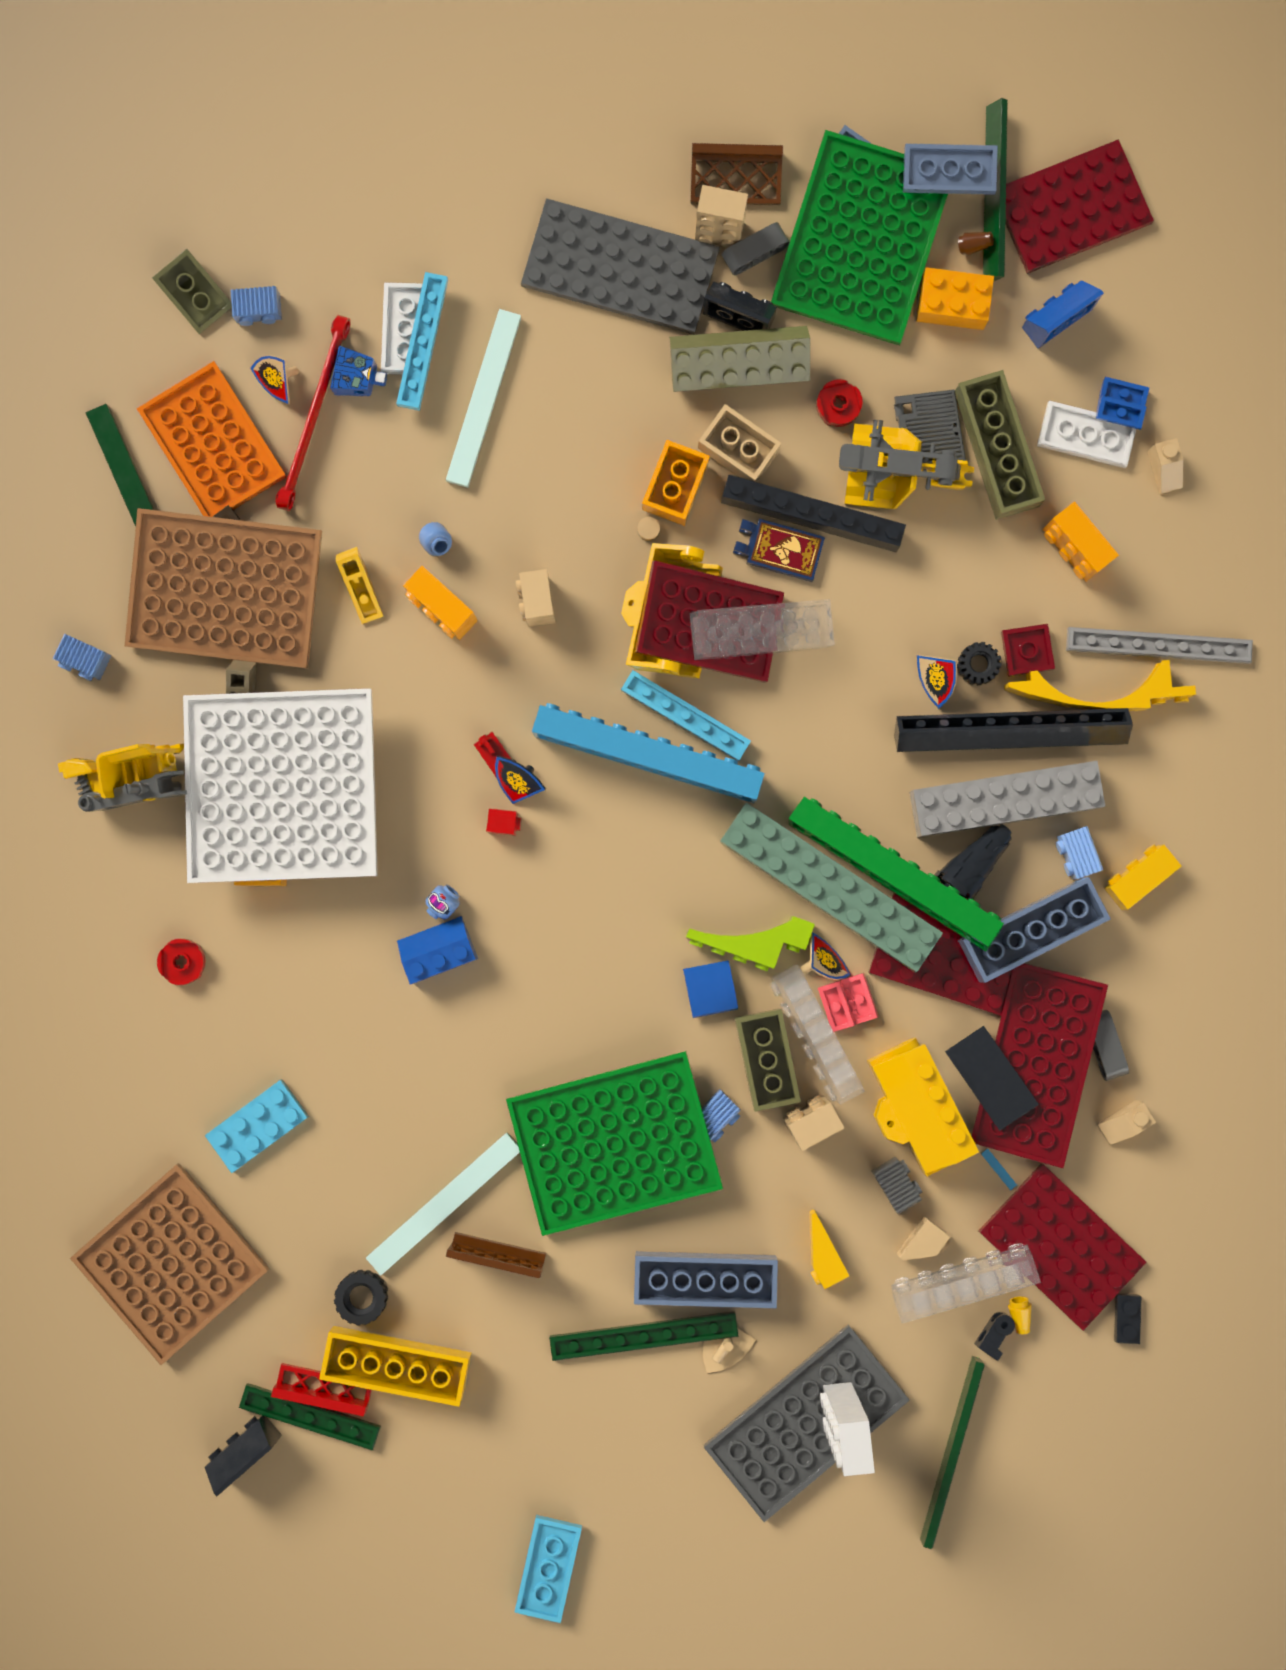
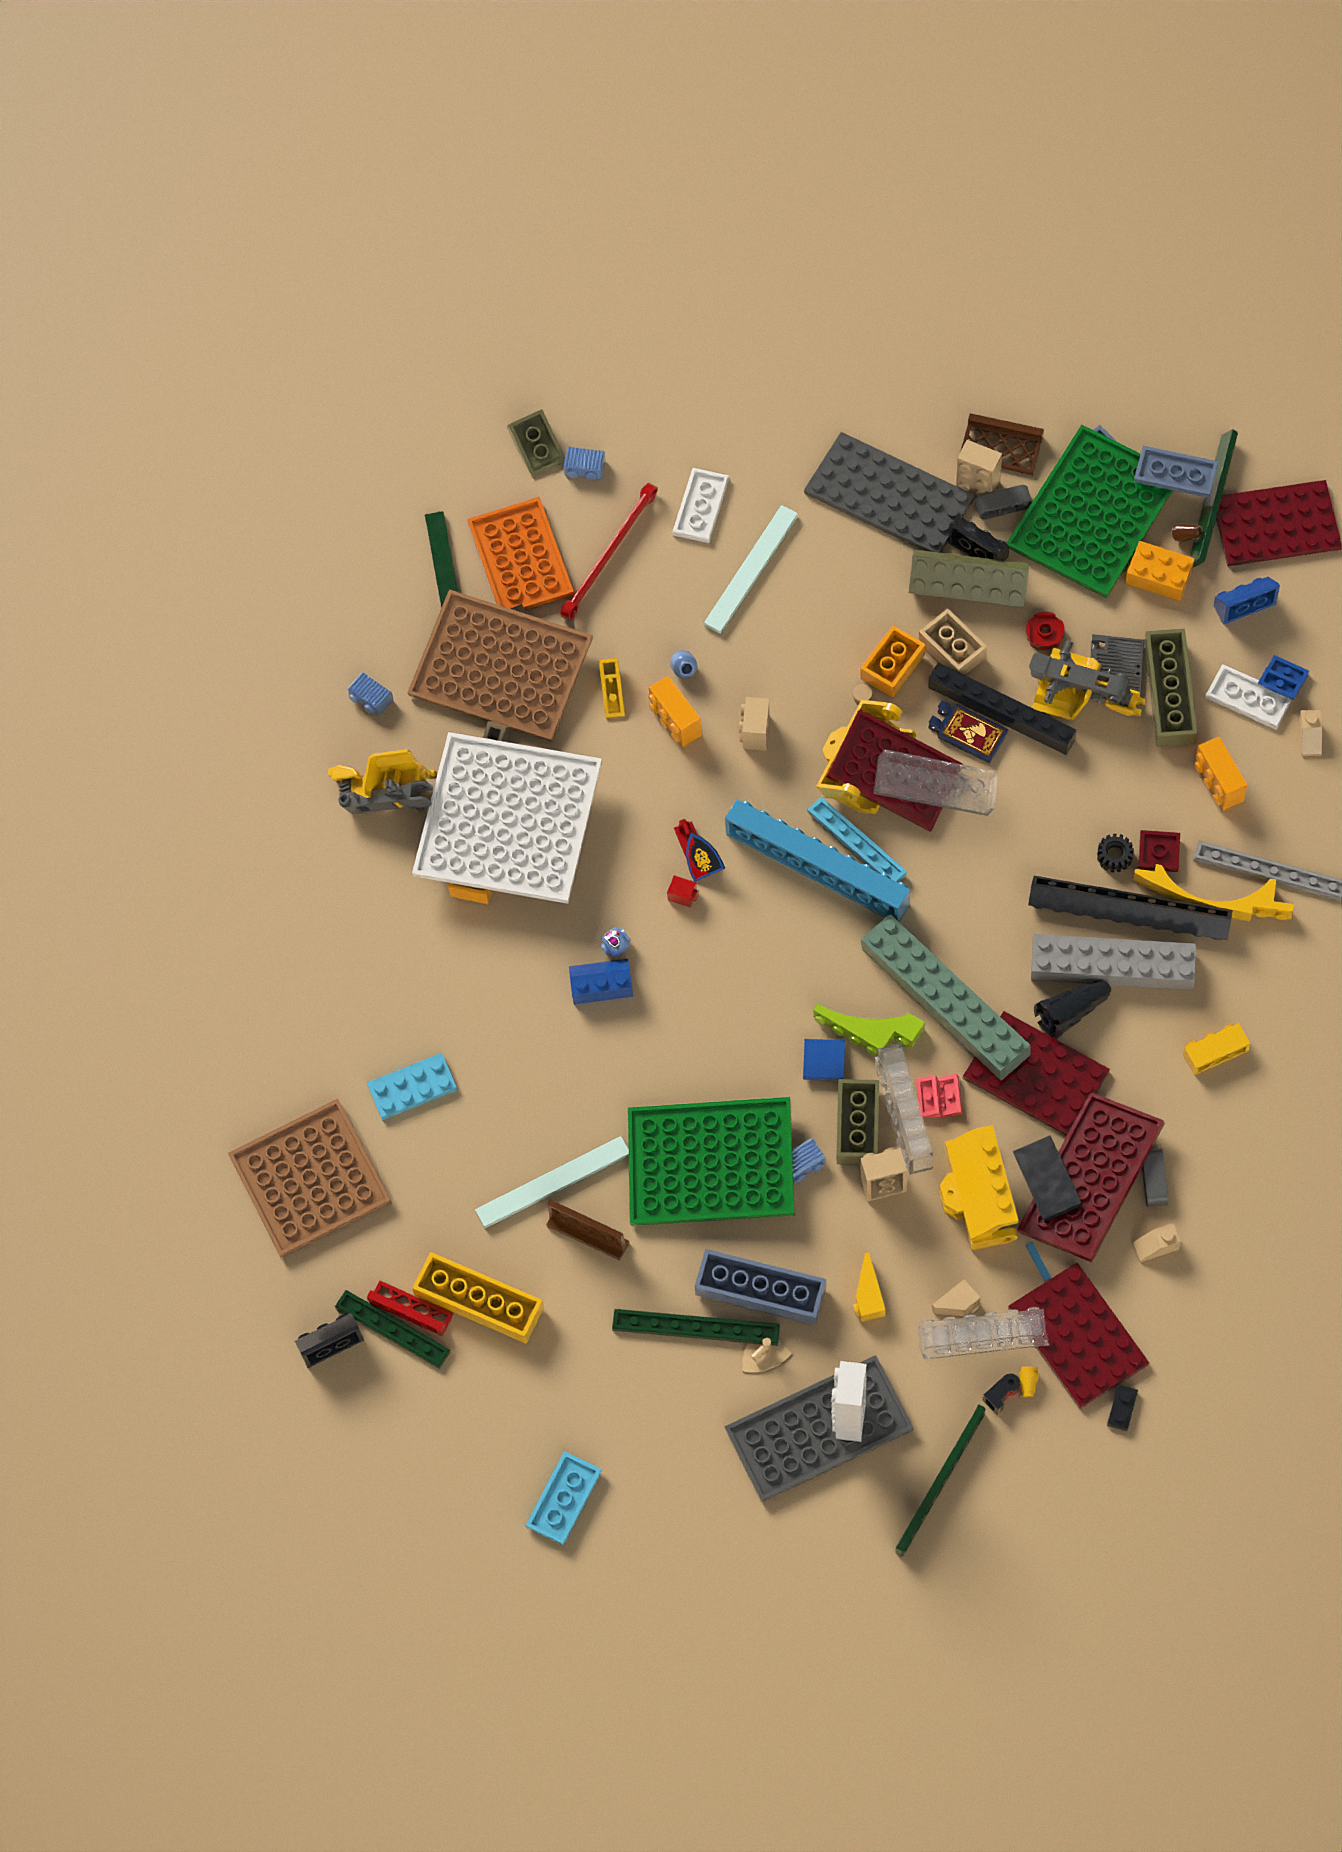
camera: 15 degrees right, 20 degrees down
(171, 952) = (385, 954): red plate -> none
(273, 376) = (584, 516): shield -> none
(344, 1305) = (455, 1226): black tyre -> none
(355, 374) = (651, 529): blue torso -> none
(422, 341) = (712, 515): medium azure plate -> none
(825, 960) = (926, 1055): shield -> none
(895, 873) = (1002, 993): green brick -> none
(897, 1185) = (945, 1250): dark grey brick -> none
(937, 677) = (1076, 854): shield -> none
(1038, 929) = (1109, 1063): sand blue brick -> none
(1079, 853) = (1166, 1018): light blue brick -> none

